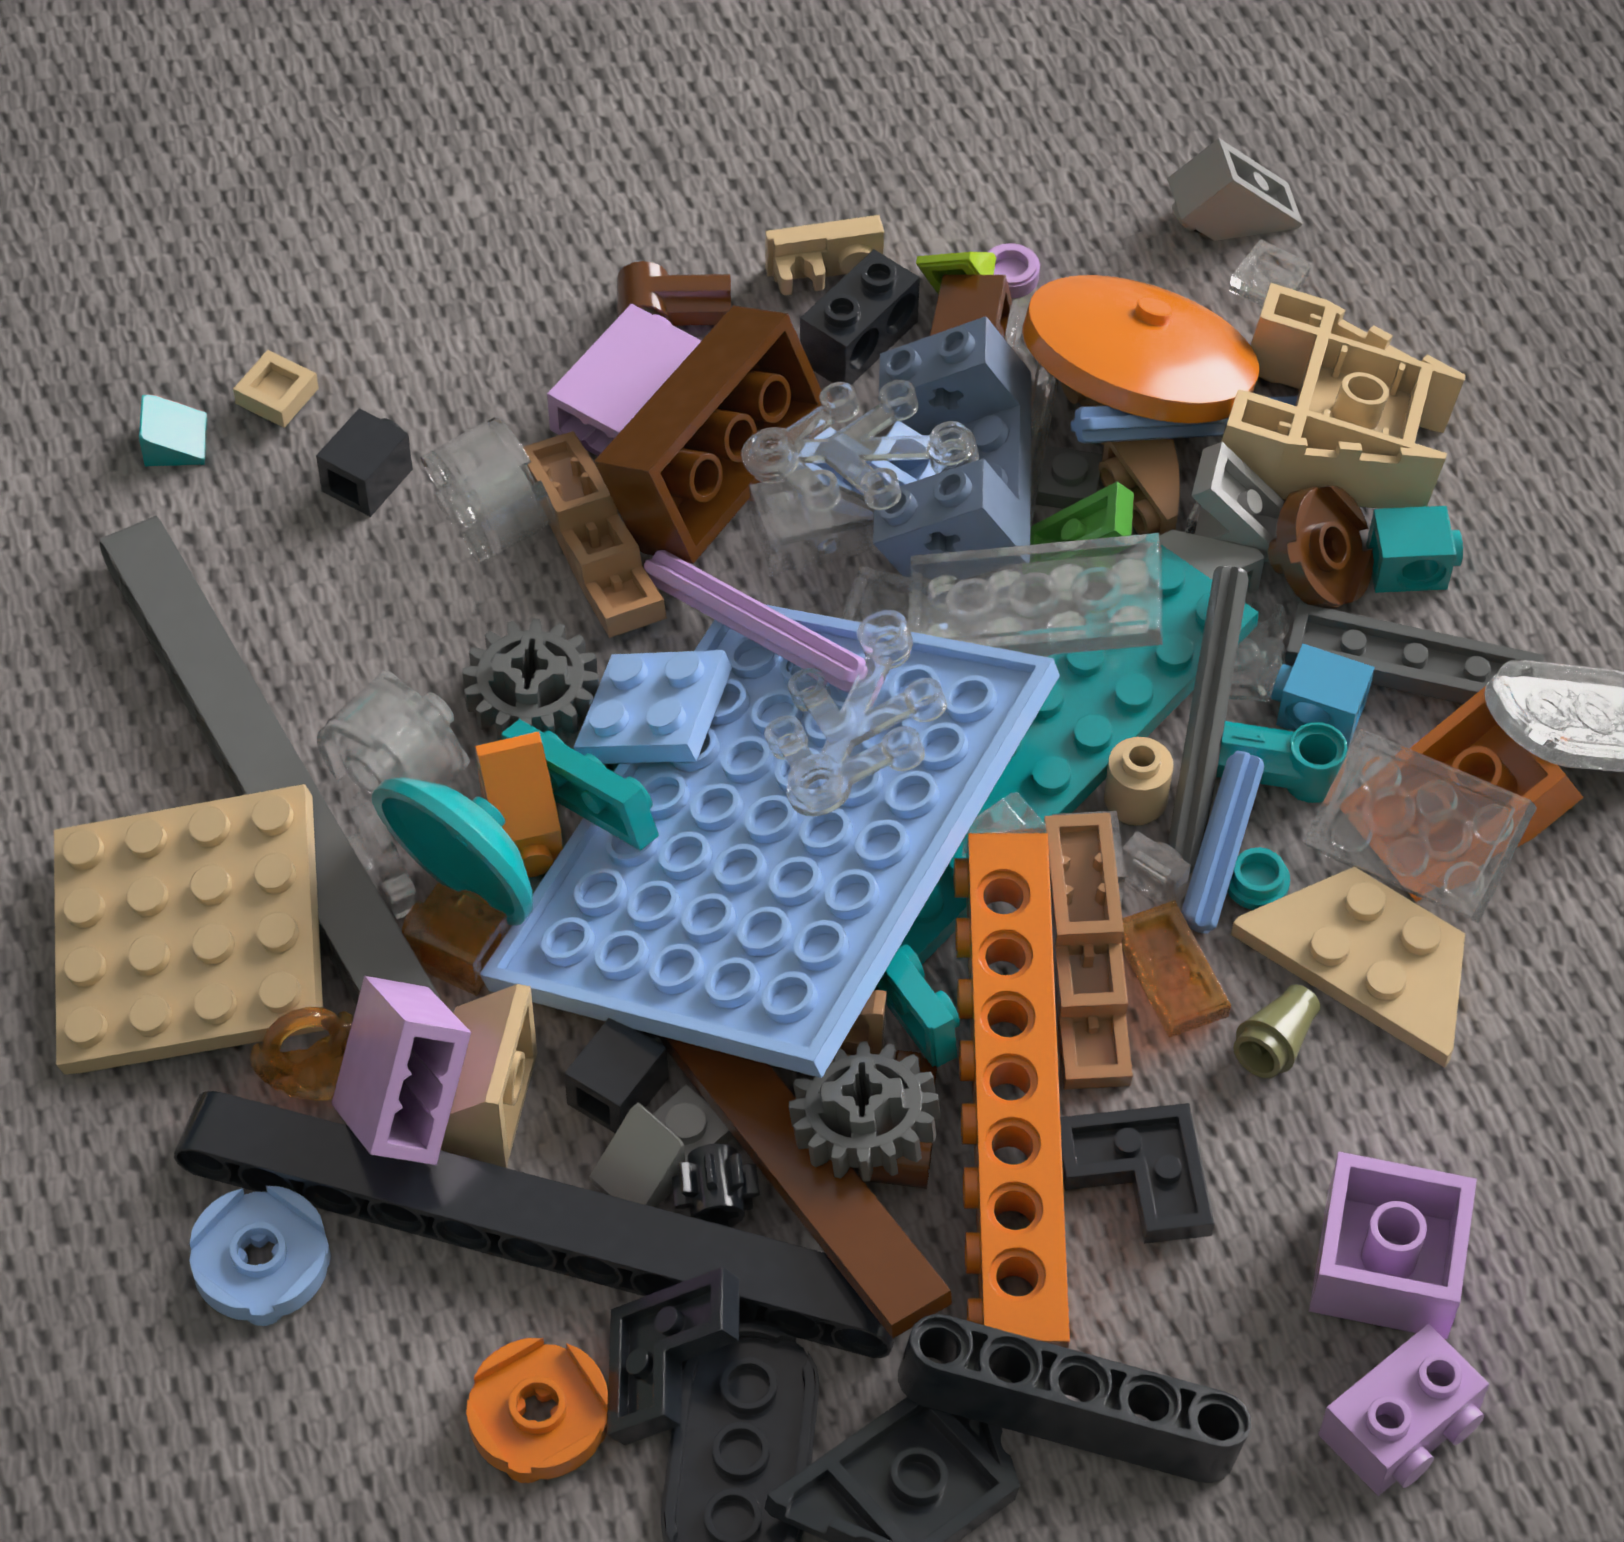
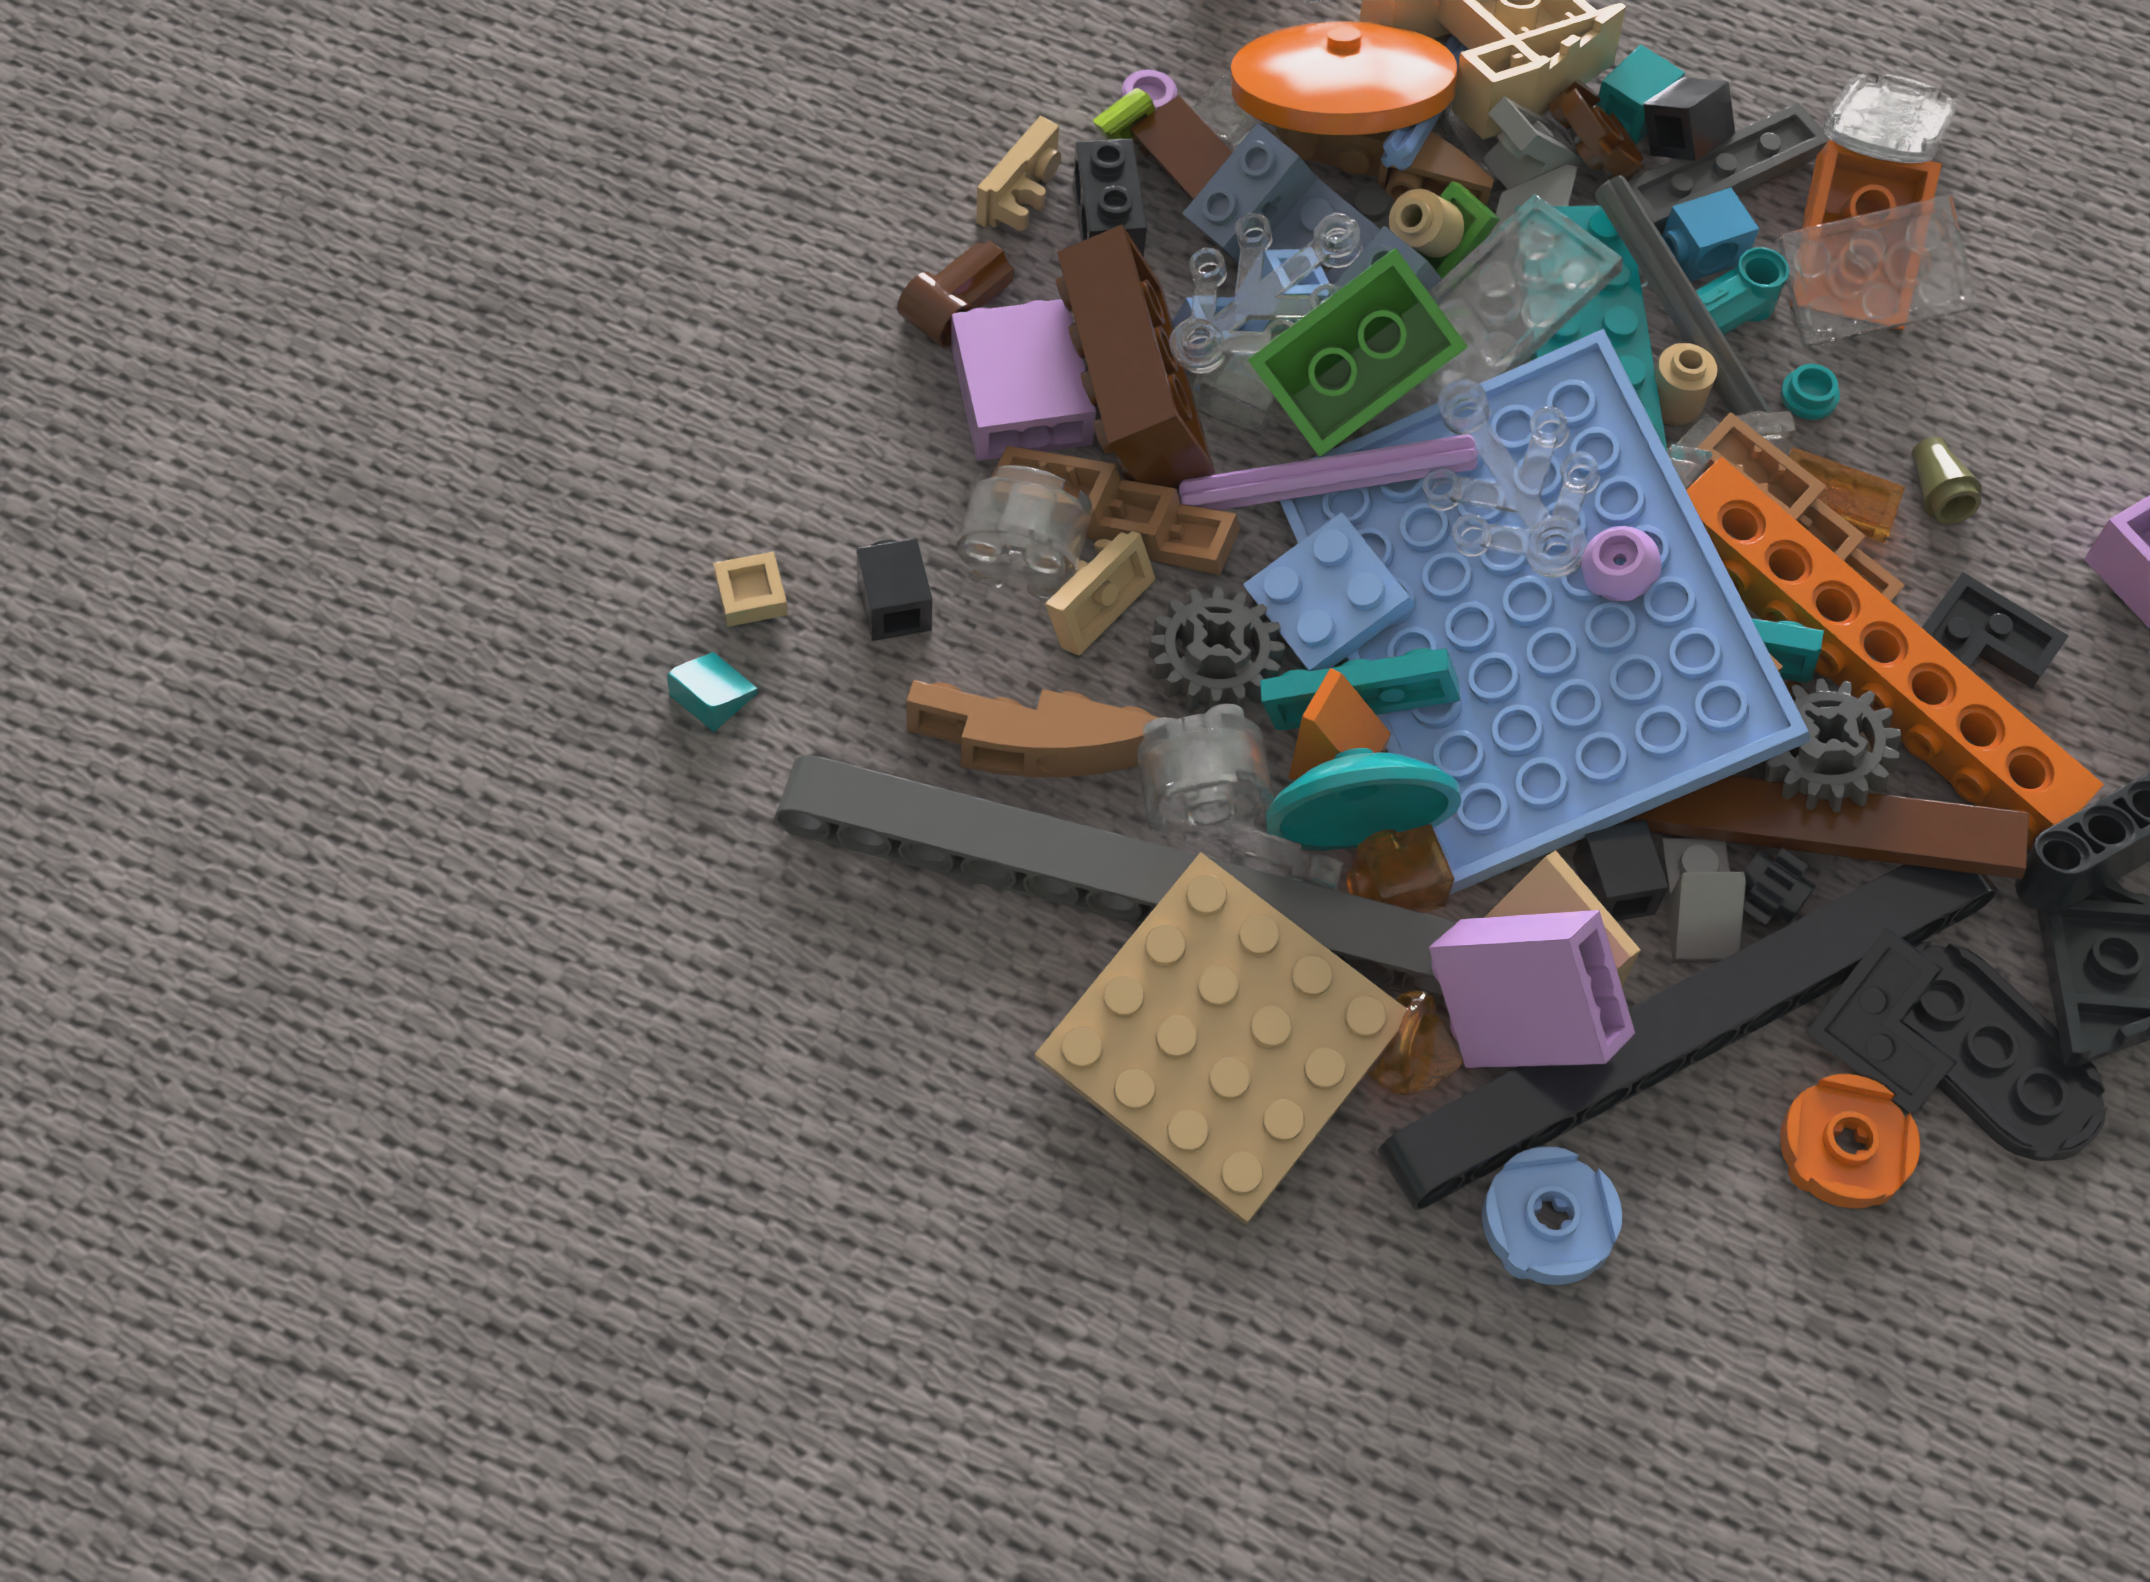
camera: 50 degrees left, 5 degrees up
(331, 638) = (1000, 736): none -> medium nougat slope
(502, 577) = (1100, 591): none -> tan plate
(843, 833) = (1626, 580): none -> lavender plate
(857, 538) = (1357, 352): none -> bright green slope
(1055, 497) = (1427, 223): none -> tan brick
(1222, 841) = (1773, 377): medium blue axle -> none
(1368, 954) = (1928, 386): tan wing -> none
(1416, 592) = (1689, 118): none -> black brick

